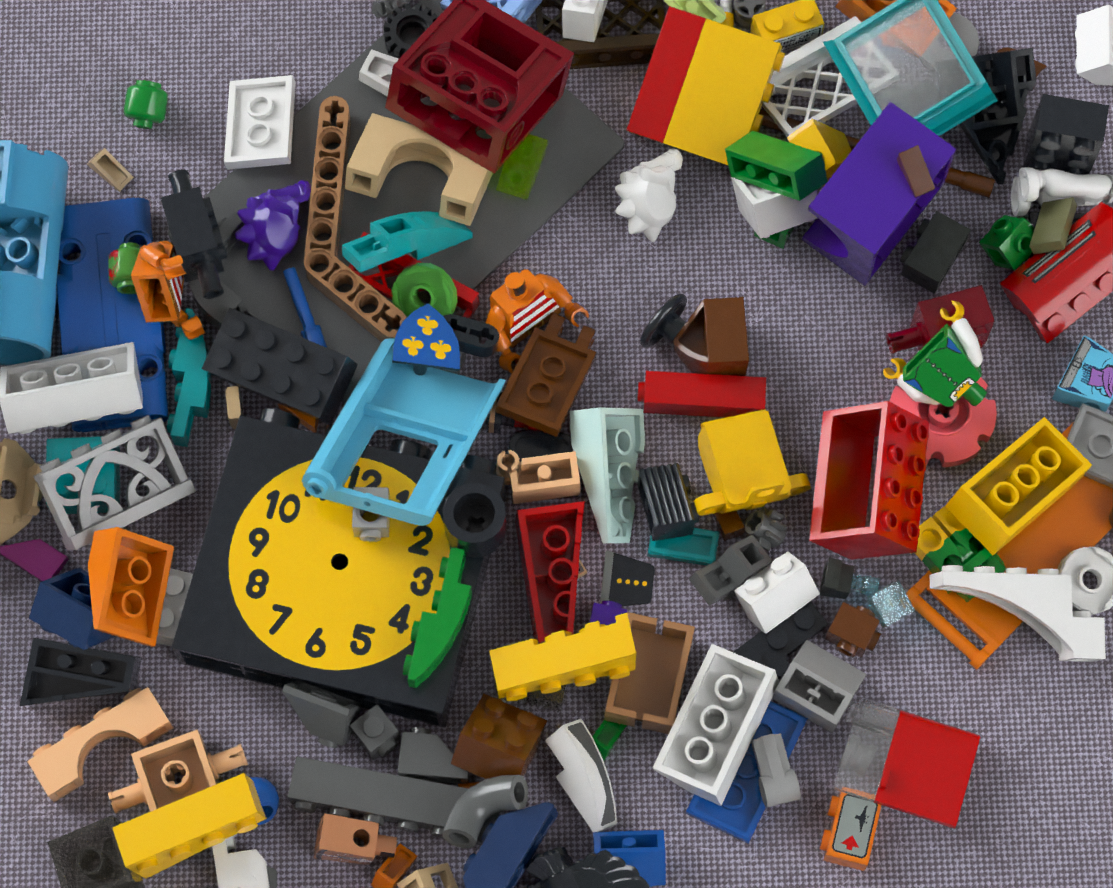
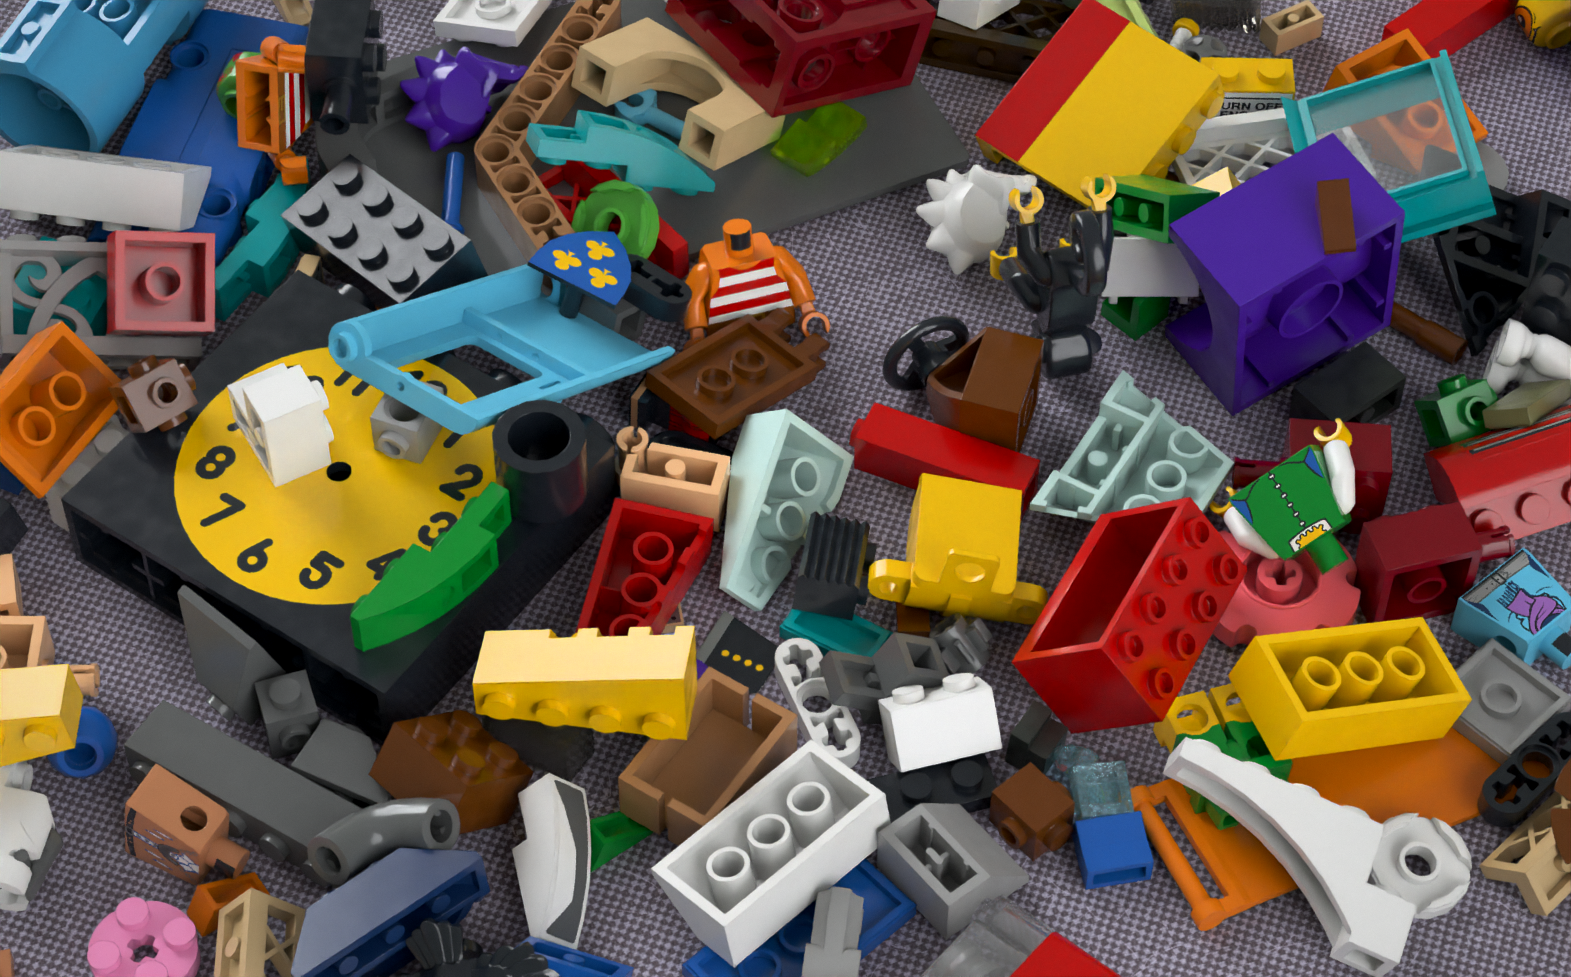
camera: 20 degrees right, 20 degrees down
(157, 462) = (160, 283): none -> brick
(201, 556) = (155, 394): none -> brick
(292, 545) = (283, 421): none -> white brick
(407, 186) = (648, 113): none -> medium azure bar
(669, 586) = (811, 724): none -> white beam
(748, 257) = (1062, 281): none -> black animal
(828, 361) = (1133, 460): none -> light aqua wedge
(908, 637) = (1112, 850): none -> blue piece
(1028, 368) = (1422, 561): none -> dark red brick

